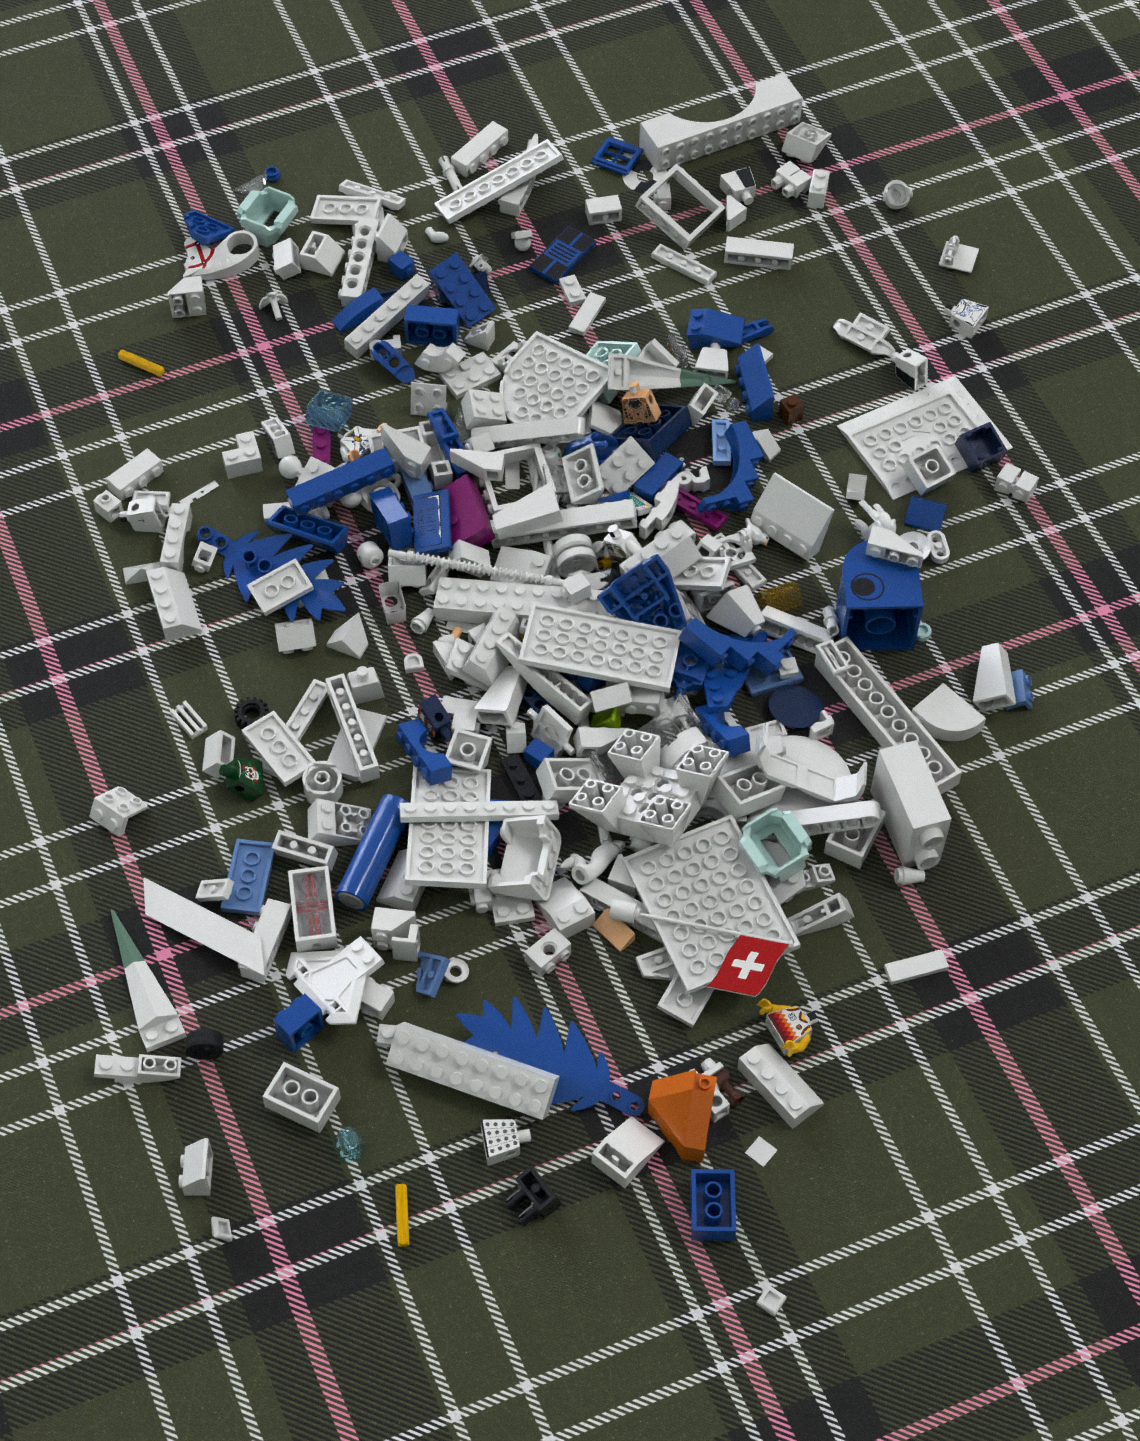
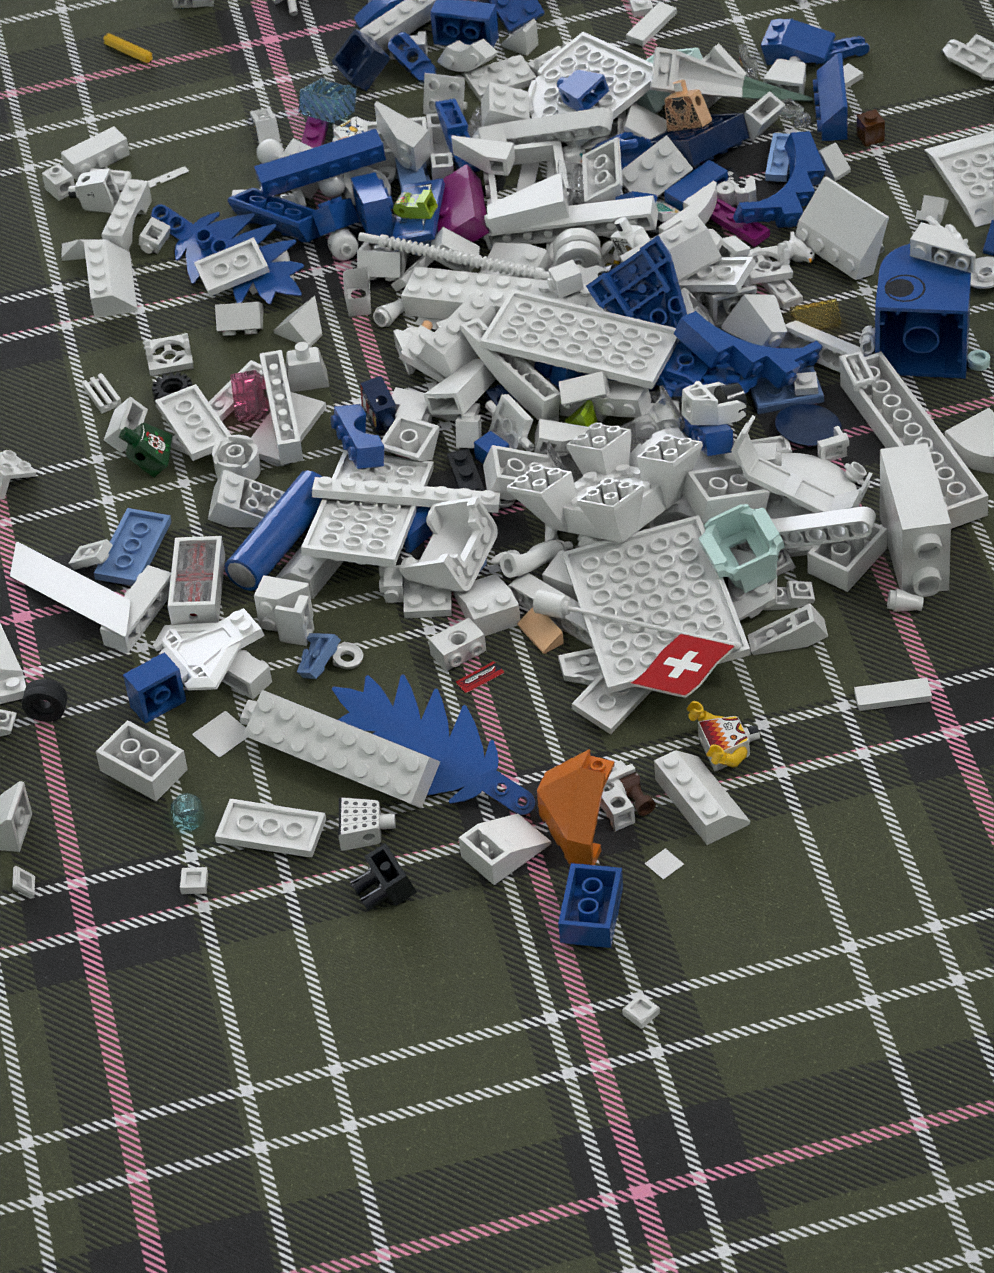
camera: 15 degrees right, 10 degrees down
(244, 459) = (220, 145): white brick -> none
(255, 684) = (169, 365): none -> white piece
(304, 850) = (200, 522): white brick -> none
(321, 718) = (249, 396): none -> clear pink brick
(350, 367) = (360, 59): none -> dark blue container
(360, 529) = (334, 215): none -> blue brick
(362, 1058) = (221, 734): none -> white sticker
(369, 1212) = (194, 880): none -> white plate
(402, 1215) = (230, 888): yellow axle -> none
(413, 663) = (369, 355): white tile -> none
(425, 1151) = (270, 828): none -> white plate
(431, 519) = (415, 205): none -> lime leg
(549, 393) = (582, 89): none -> blue torso
(571, 980) = (479, 677): none -> sticker
(728, 708) = (713, 403): none -> white piece
(844, 752) = (855, 472): none -> white plate

